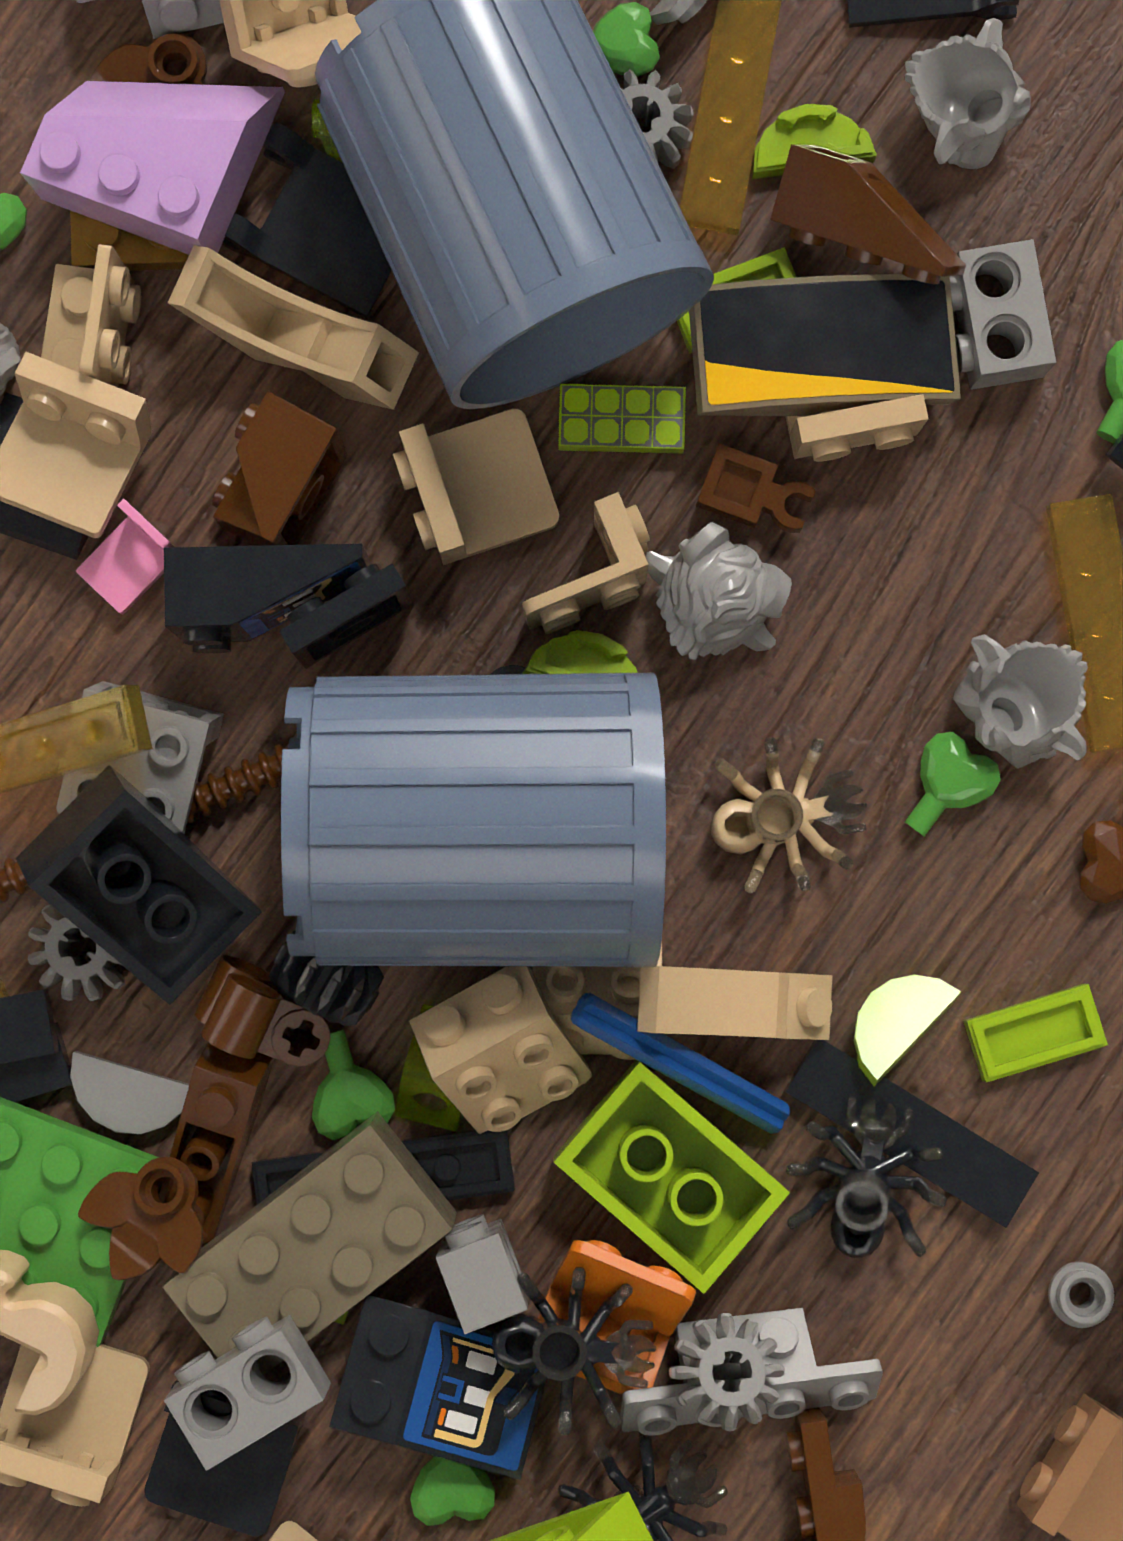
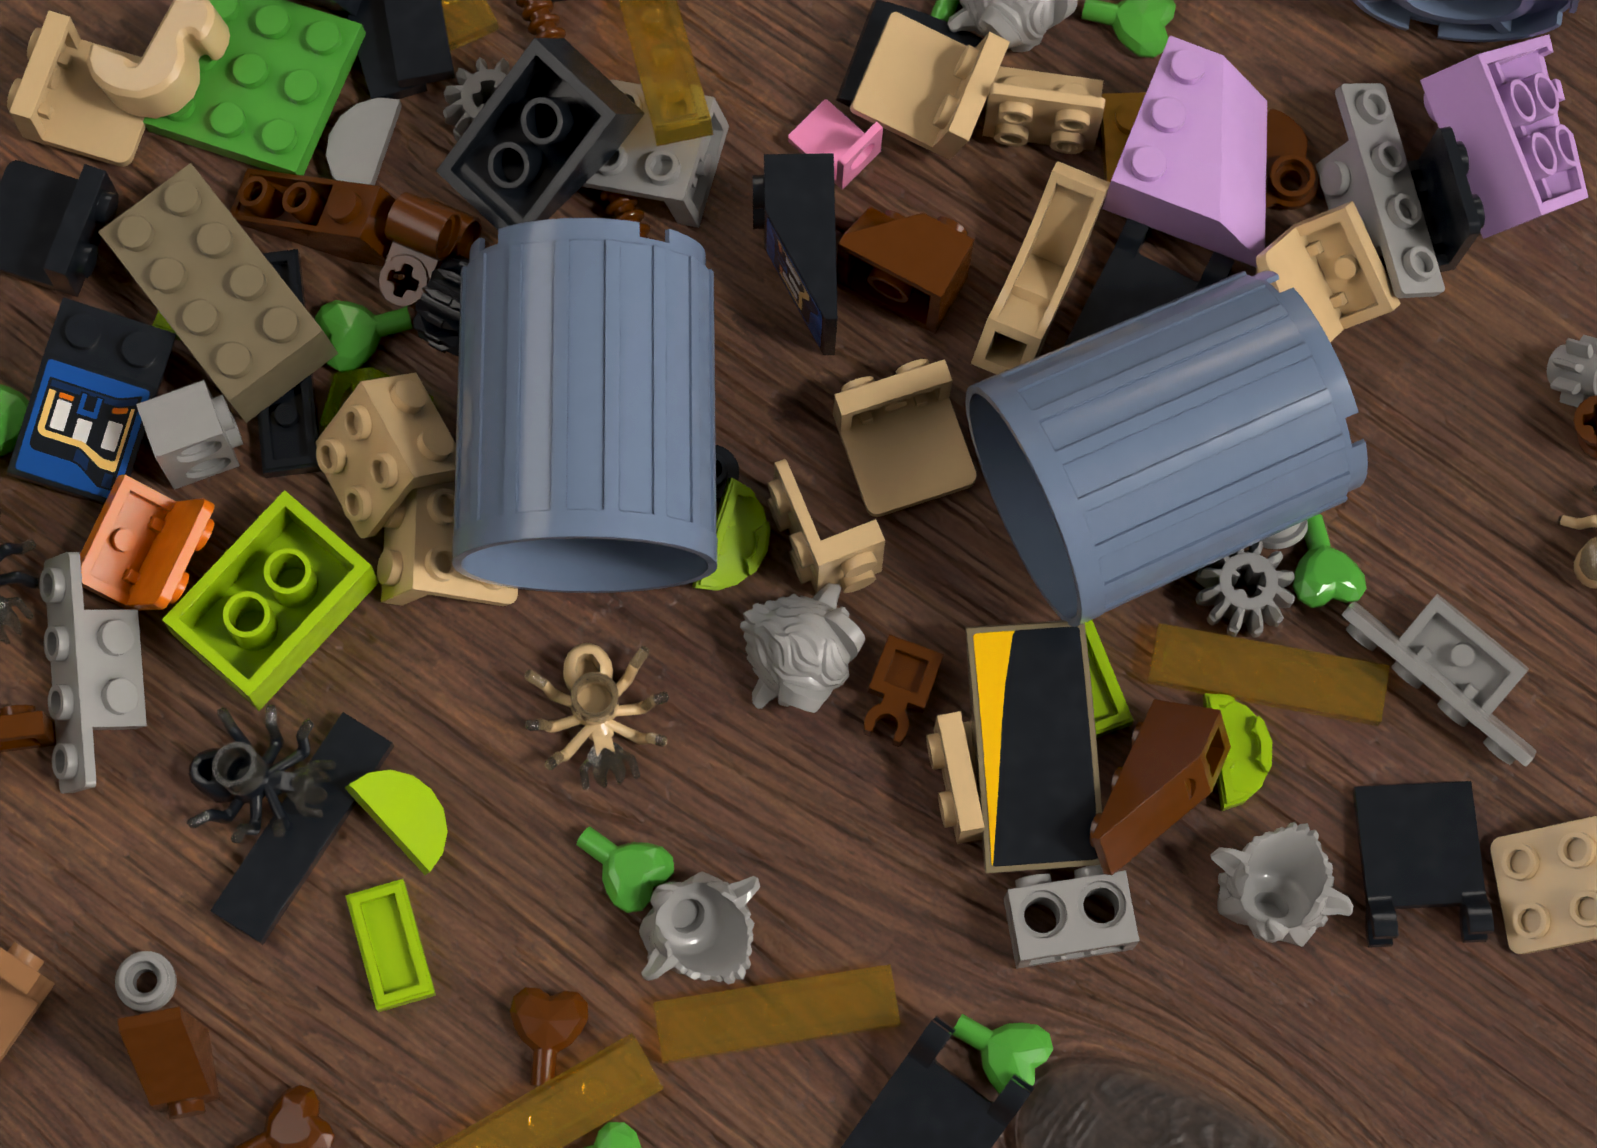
camera: 90 degrees right, 10 degrees down
(142, 1224) = (245, 150): reddish brown plate -> none
(256, 1402) = (93, 227): light grey brick -> none
(368, 602) = (787, 331): black plate -> none
(563, 1350) = (121, 496): animal -> none
(622, 418) = (969, 571): lime tile -> none
(680, 1063) = (369, 608): blue axle -> none
(734, 1003) = (423, 655): tan slope -> none
(742, 1389) = (74, 646): light grey gear -> none

